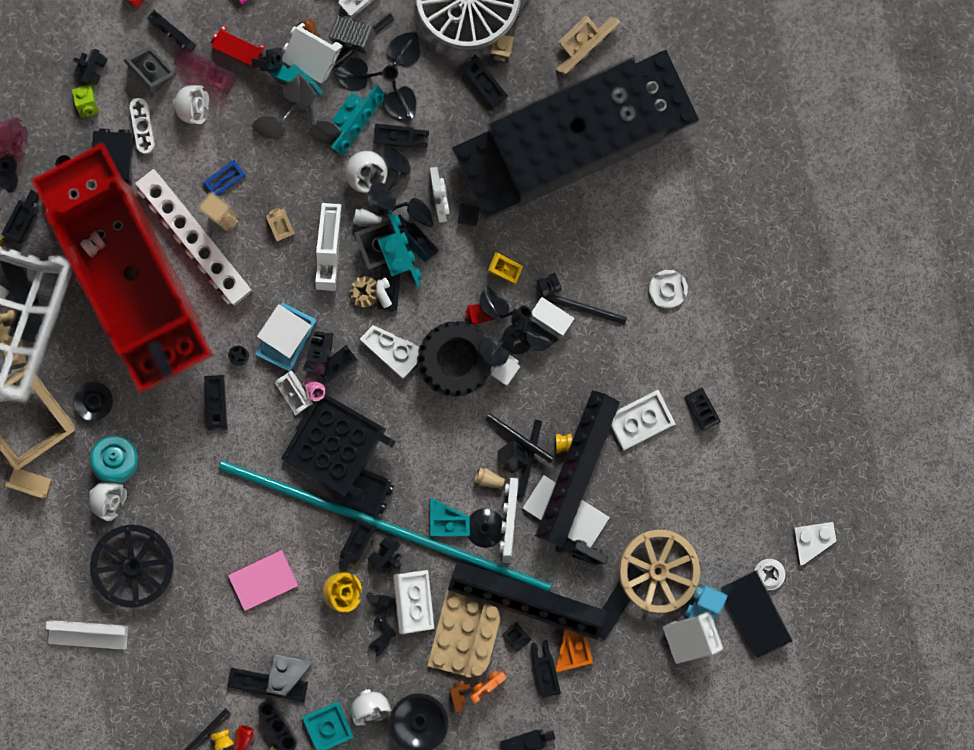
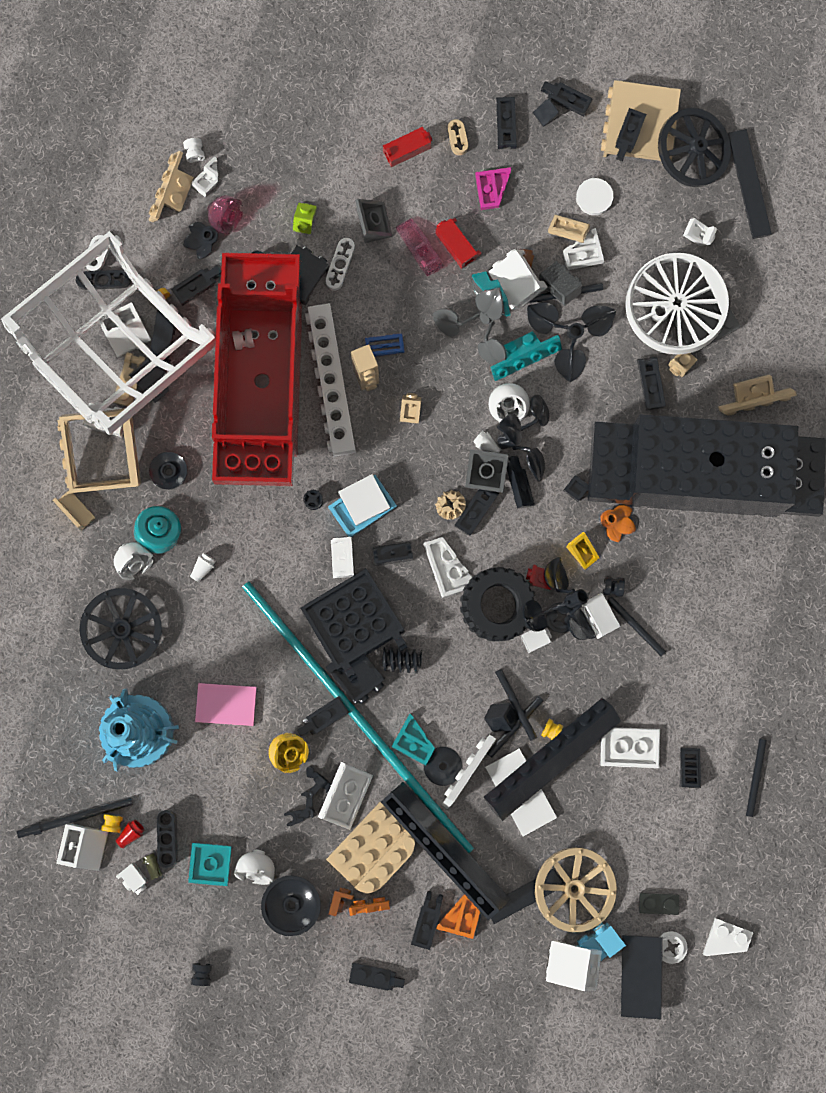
camera: 30 degrees right, 5 degrees down
(87, 634) = (49, 667): white panel -> none
(88, 75) = (332, 187): black hips -> none
(158, 20) = (408, 197): black hinge -> none
(161, 358) = (246, 462): black beam -> none
(173, 470) = (202, 567): none -> white cone
(191, 100) = (393, 264): white cylinder -> none
(205, 640) = (146, 731): none -> medium azure cone
(216, 402) = (271, 528): black plate -> none
(258, 683) = (178, 797): black tile -> none
(271, 61) = (481, 266): black bracket -> none
(286, 674) = (199, 797): wing -> none
(314, 390) = (361, 564): bright pink cone -> none
(319, 353) = (383, 535): black hinge -> none
(328, 247) = (441, 449): white slope -> none
(379, 561) = (335, 744): black hips -> none
(381, 285) = (465, 513): white arm -> none
(396, 252) = (496, 486): teal bracket -> none
(397, 455) = (402, 660): none -> black piece
(398, 136) = (553, 389): black hinge -> none
(439, 192) = (562, 454): white wing -> none
(488, 479) = (469, 724): tan cone -> none
(516, 637) = (417, 878): black slope -> none
(525, 225) = (621, 522): none -> orange plate
(583, 552) = (517, 836): black wing -> none
(662, 292) = (710, 643): white tile -> none
(738, 542) = (659, 903): none -> pearl dark grey plate
(765, 385) = (756, 778): none -> black bar

